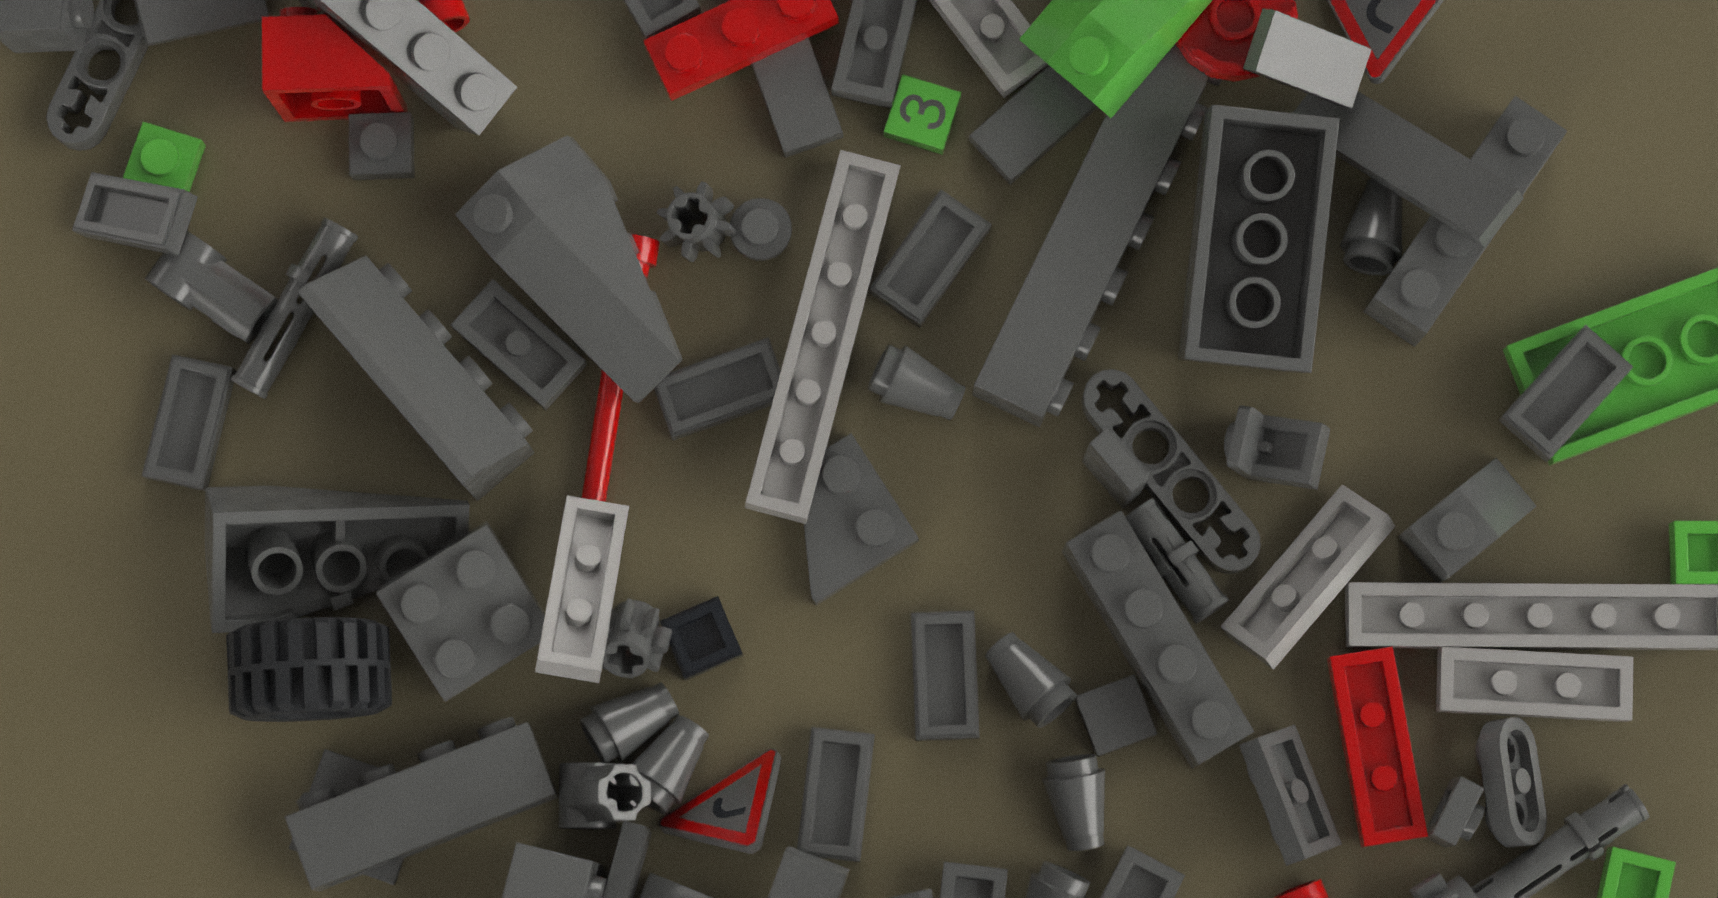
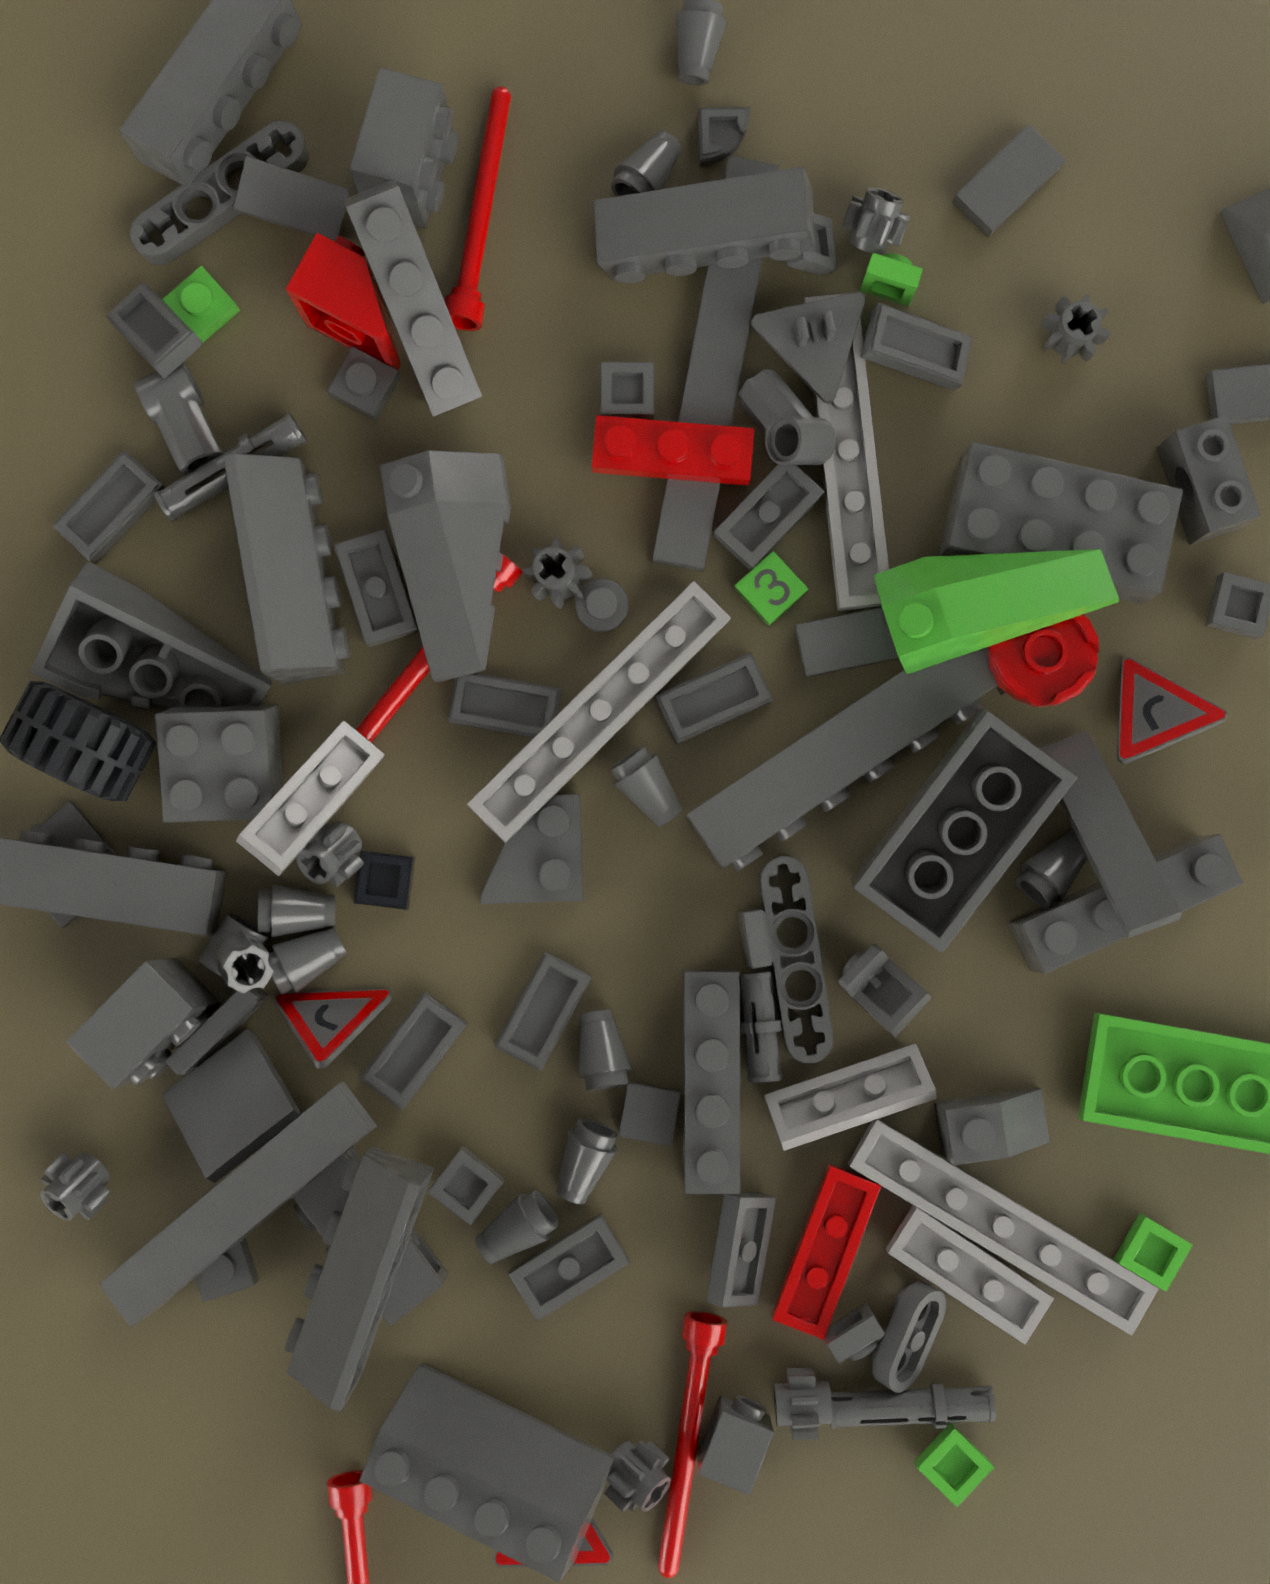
camera: 30 degrees right, 5 degrees up
(1307, 58) = (1080, 715): tile -> none
(1565, 393) = (1122, 1076): dark grey tile -> none

